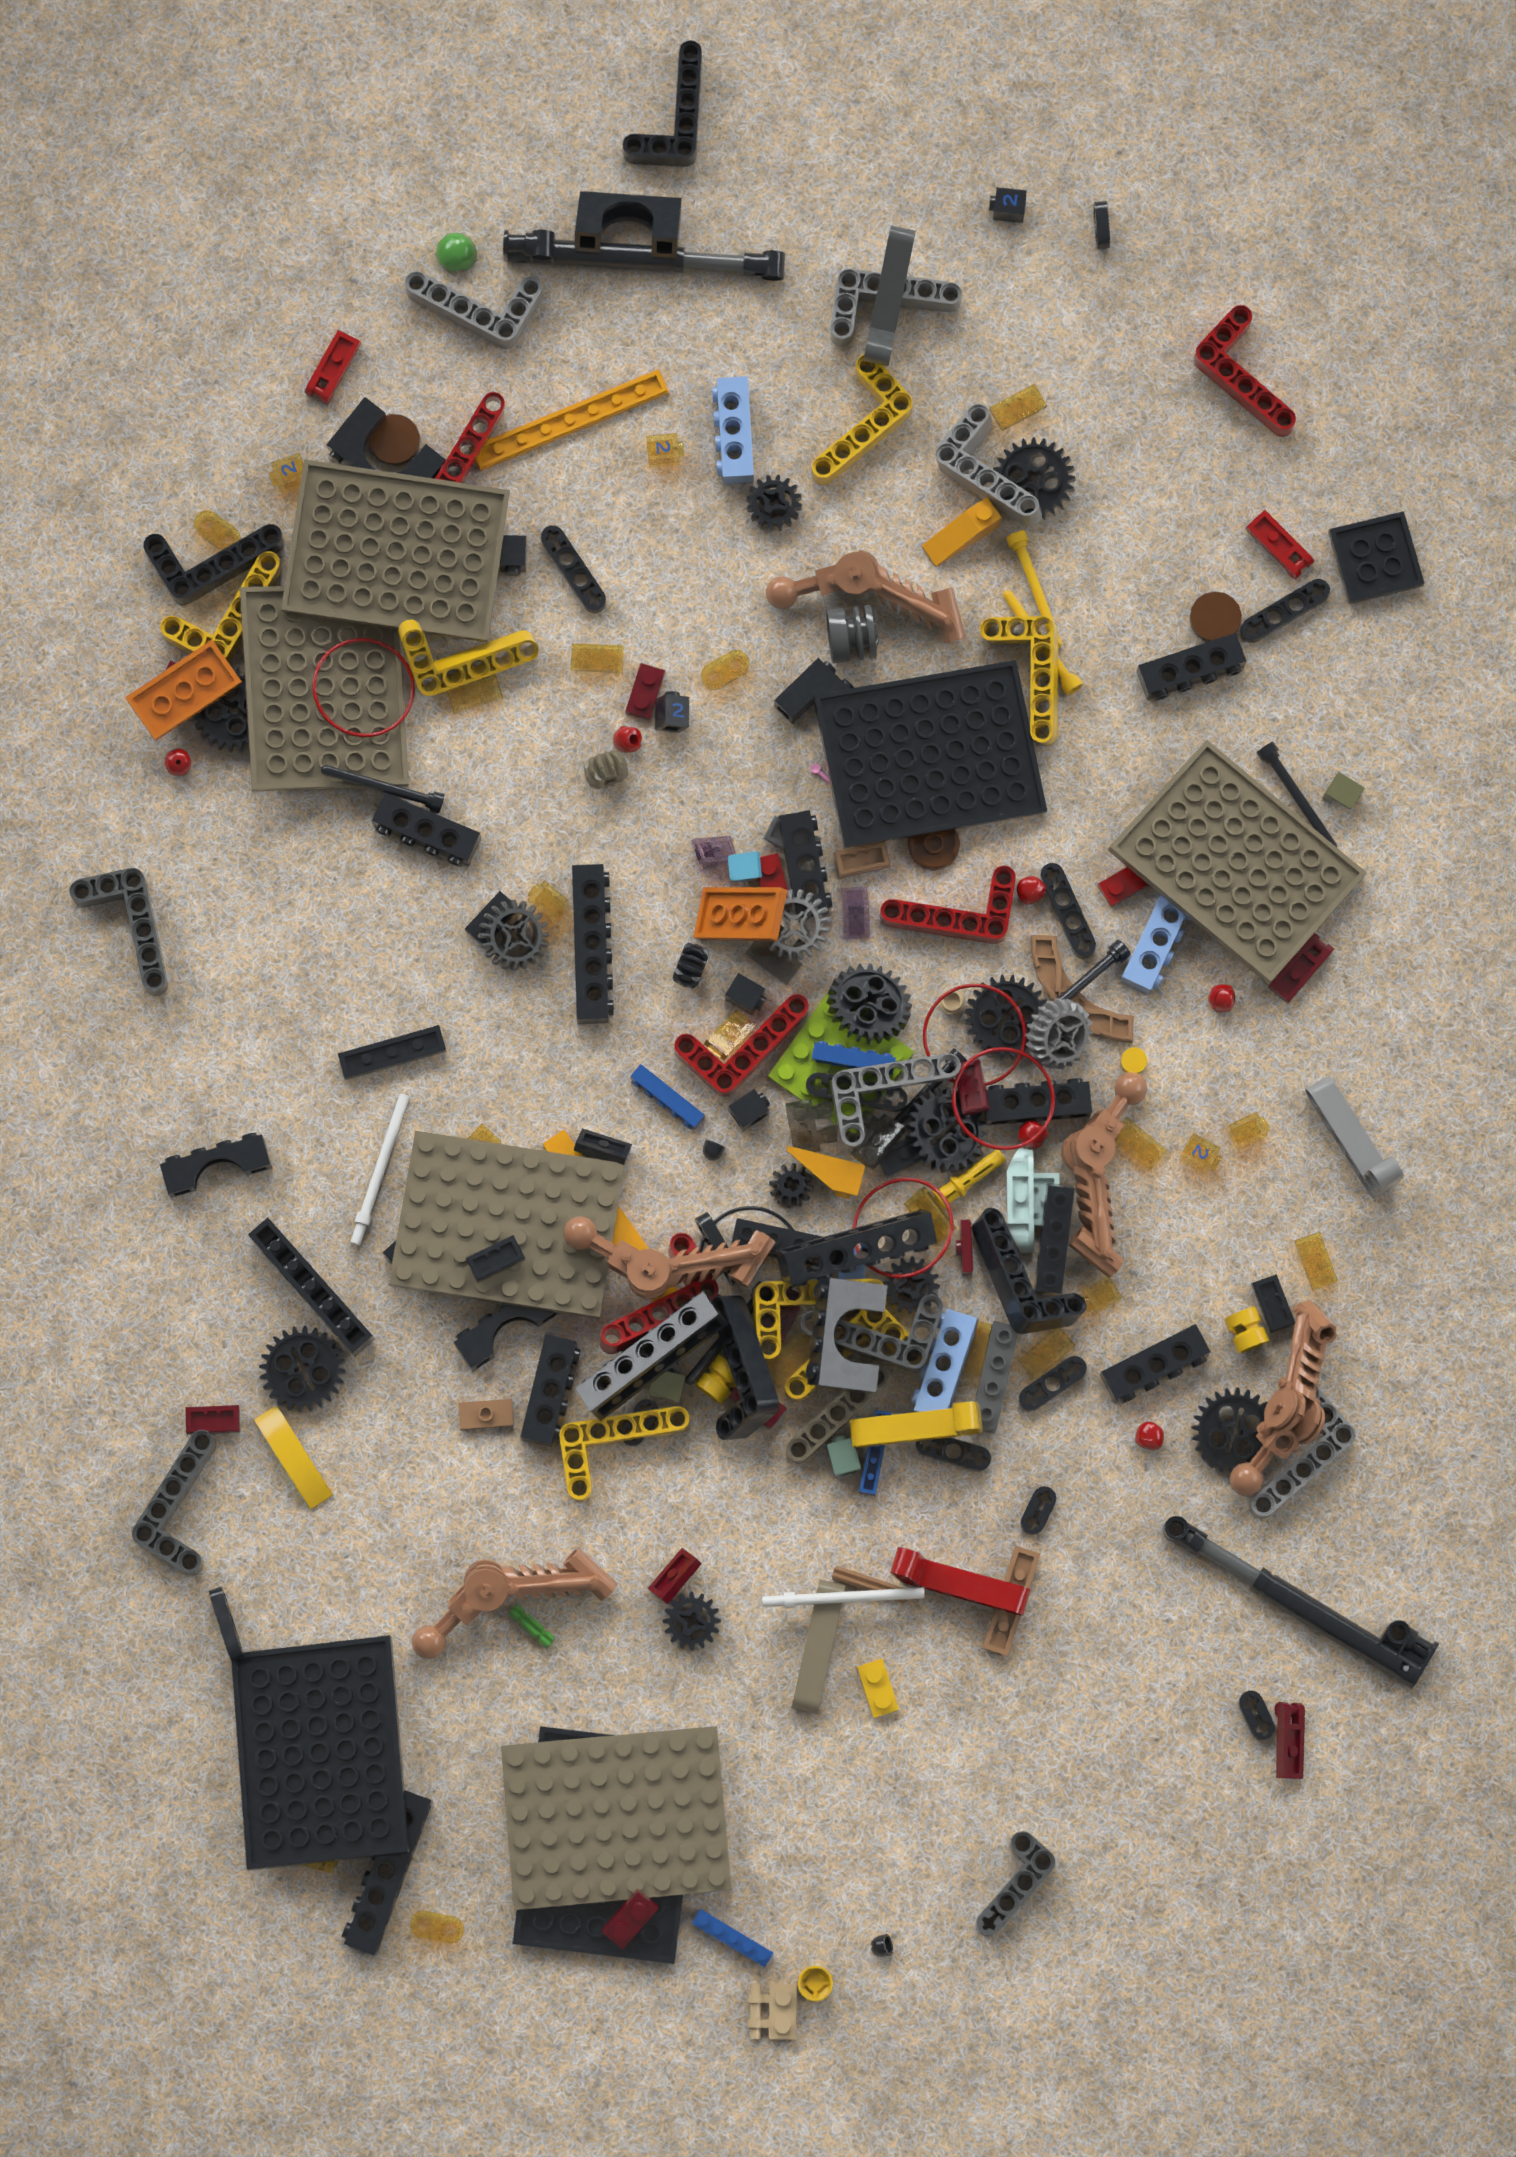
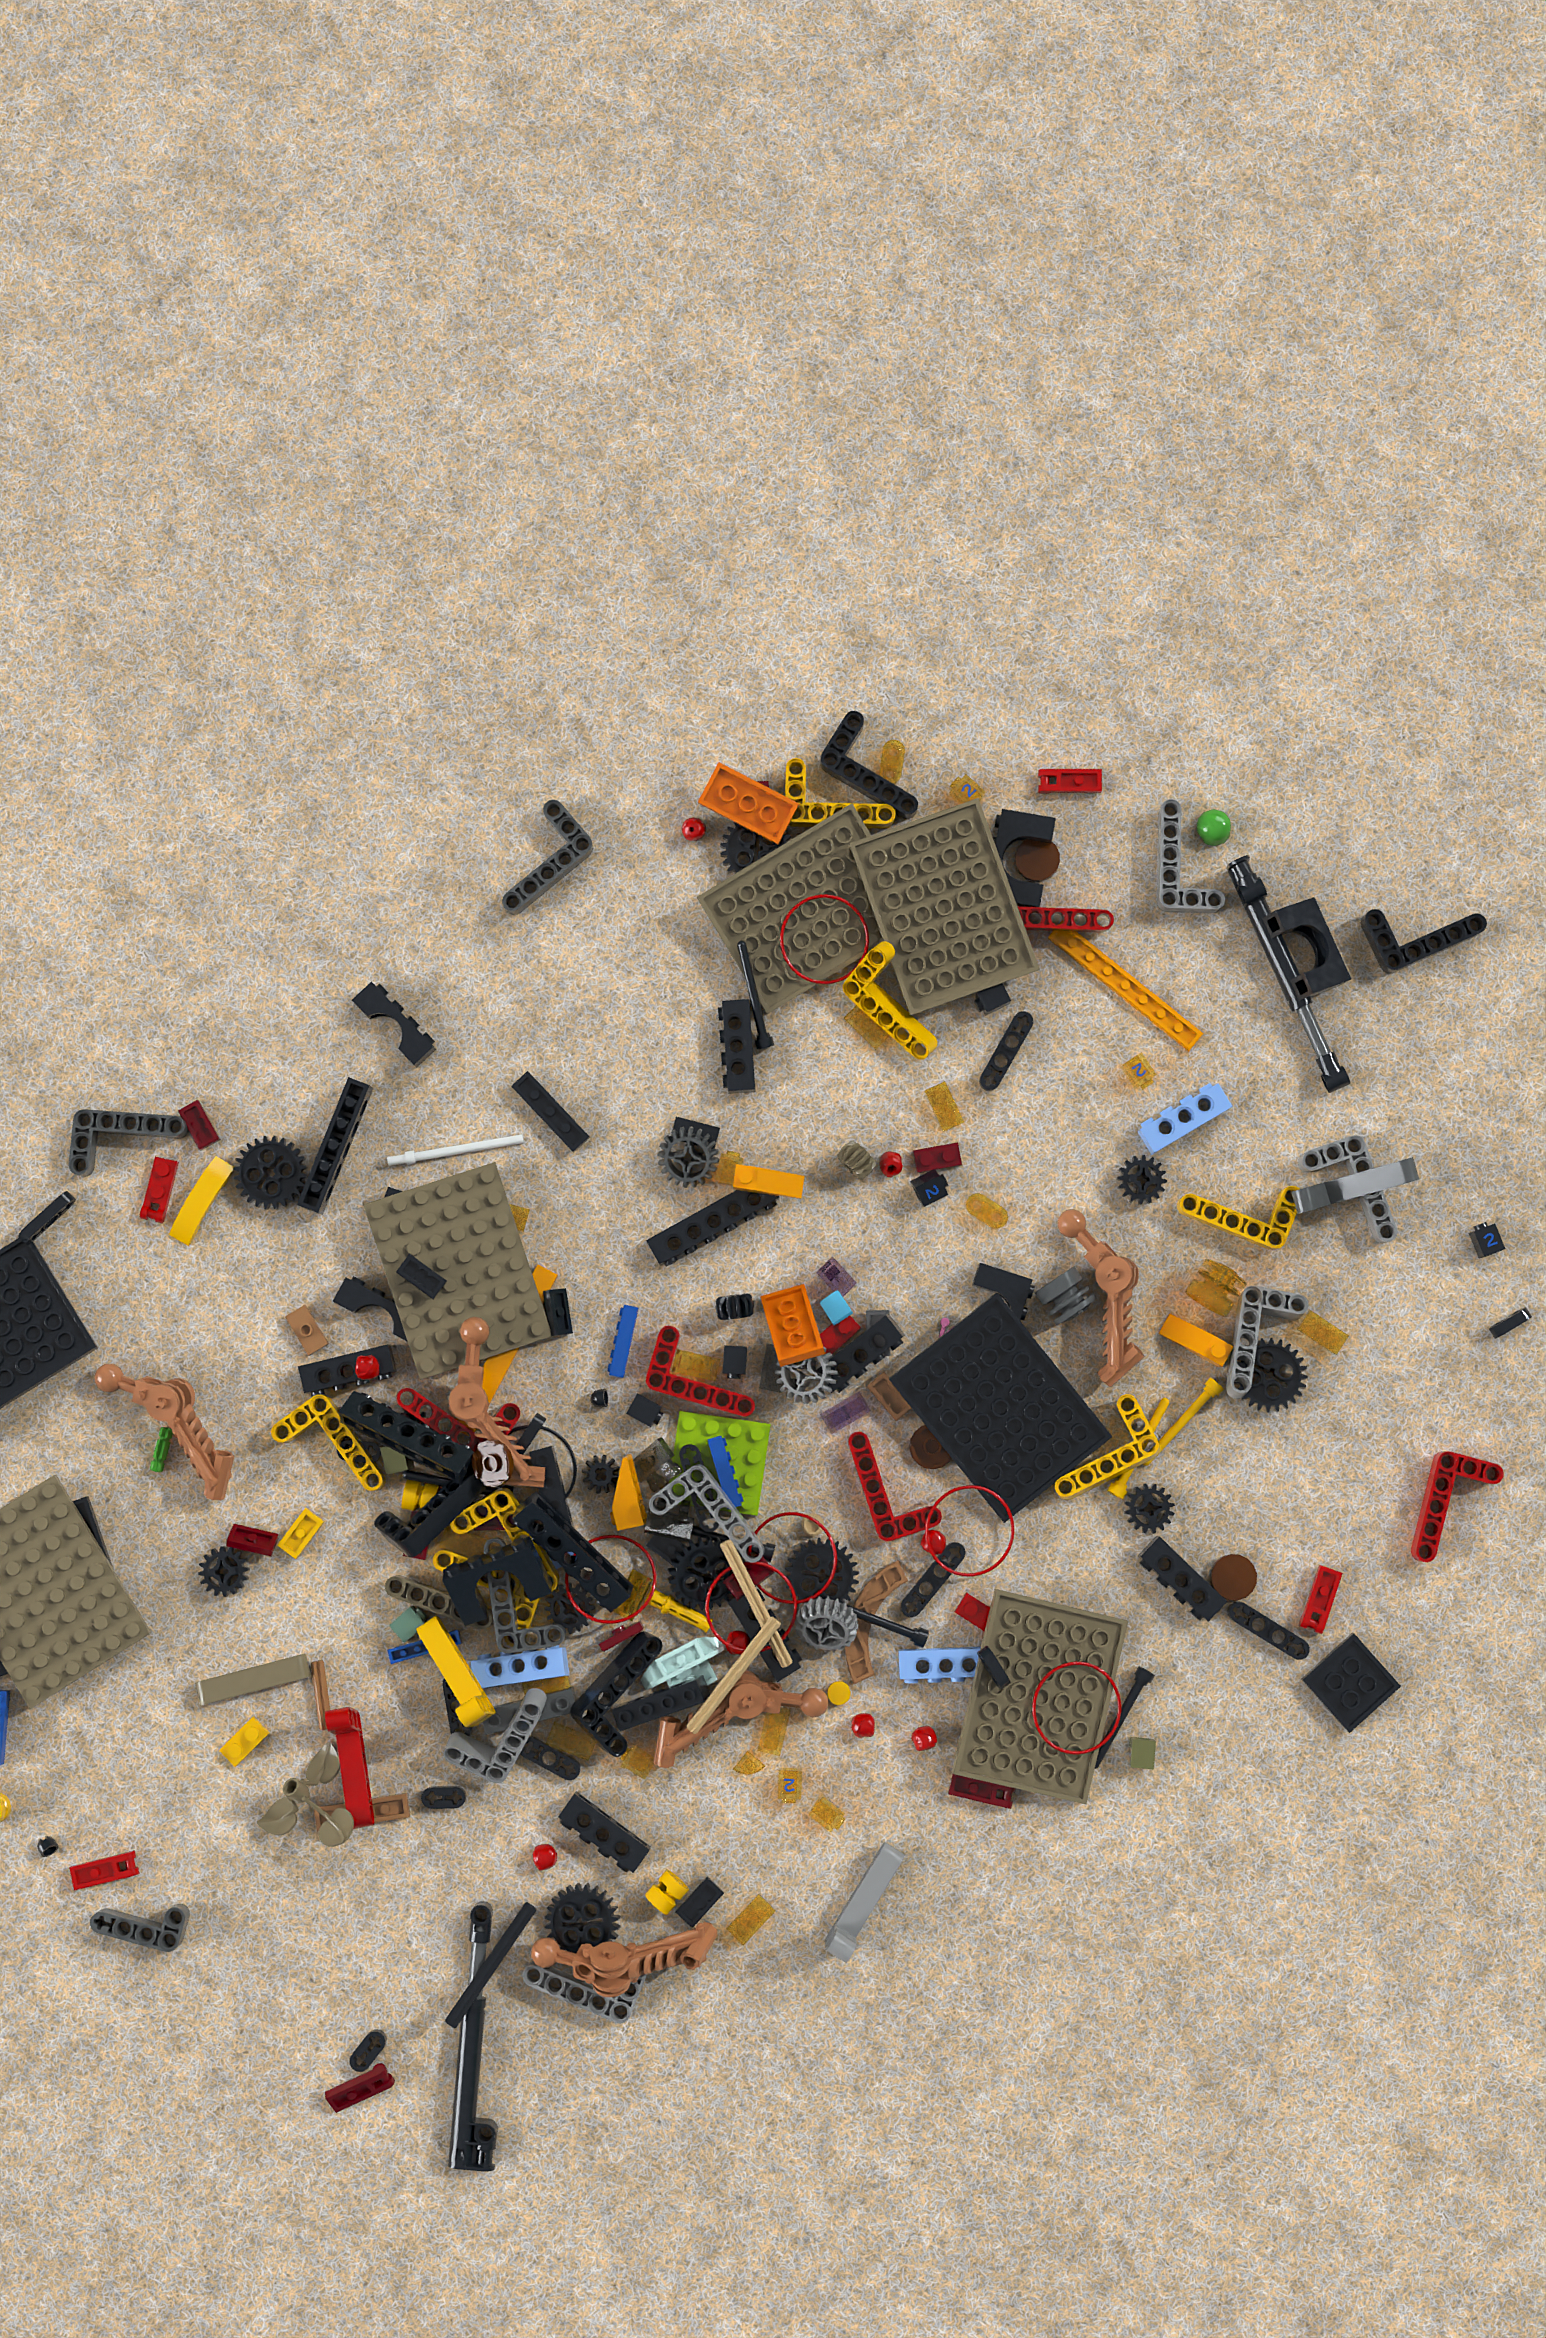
camera: 65 degrees right, 5 degrees up
(257, 1494) = (159, 1189): none -> red plate
(559, 1363) = (367, 1367): none -> red piece
(581, 866) = (768, 1181): none -> light orange slope
(693, 1523) = (301, 1533): none -> yellow plate
(725, 1276) = (492, 1463): none -> tile
(789, 1599) = (273, 1640): white bar -> none
(880, 1021) = (786, 1443): black gear -> none
(919, 485) = (1214, 1289): none -> clear yellow wheel
(936, 1899) = (103, 1870): none -> red plate
(946, 1614) = (281, 1816): none -> dark tan plant
(1002, 1089) = (754, 1600): none -> tan axle
(1015, 1409) = (497, 1762): none -> light grey beam
(1062, 1146) = (733, 1675): none -> tan axle
(1068, 813) = (927, 1530): none -> red piece
(1096, 660) = (1150, 1519): none -> black gear
(1160, 1186) = (748, 1764): none -> clear yellow tile
(1178, 1051) = (863, 1725): none -> red piece
(1185, 887) = (993, 1667): none -> black beam
(1231, 1542) = (490, 1965): none -> black axle
(1245, 871) = (1034, 1707): none -> red piece

